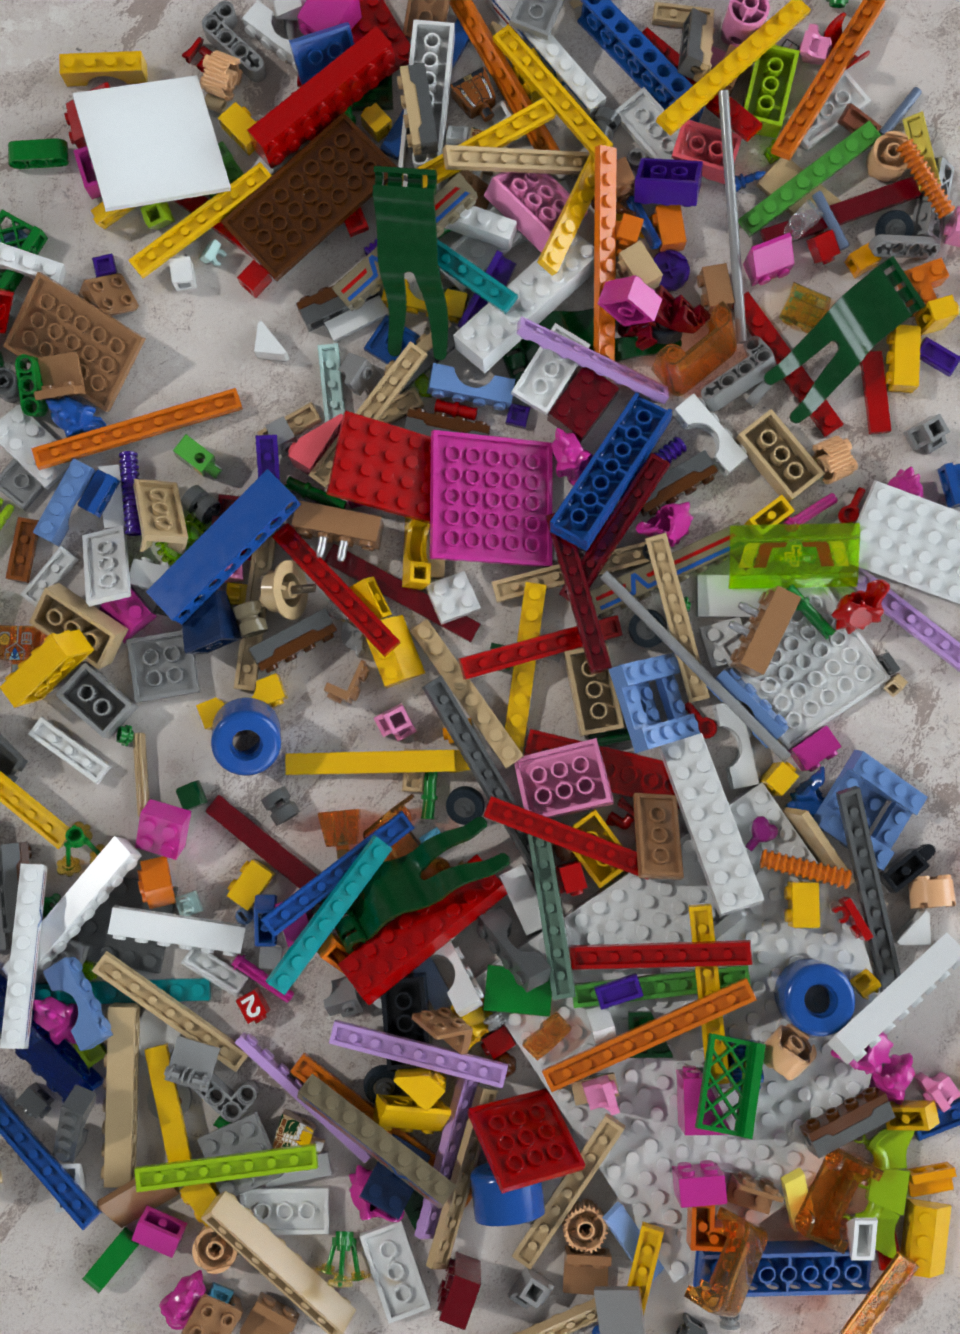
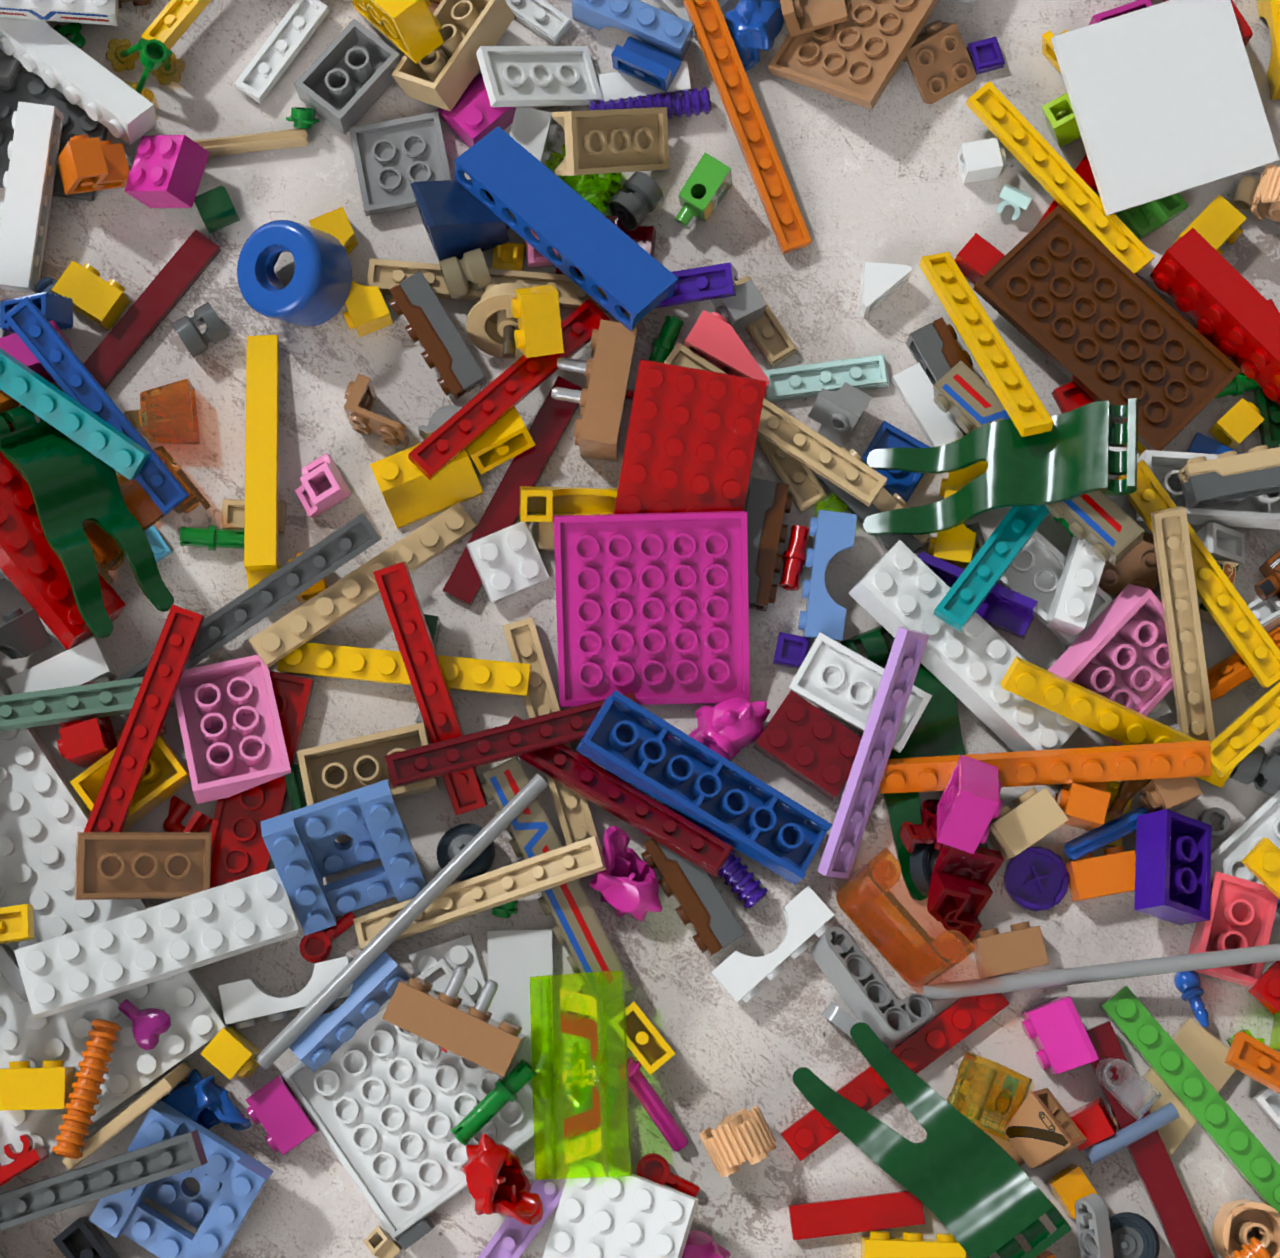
camera: 90 degrees right, 5 degrees down
(189, 904) = (67, 215): light aqua tile -> none
(292, 565) = (537, 321): none -> yellow brick
(320, 271) = (986, 345): none -> yellow plate
(465, 804) = (199, 587): black wheel -> none
(779, 456) = (740, 1053): tan brick -> none
(830, 273) = (1041, 1131): none -> medium nougat torso

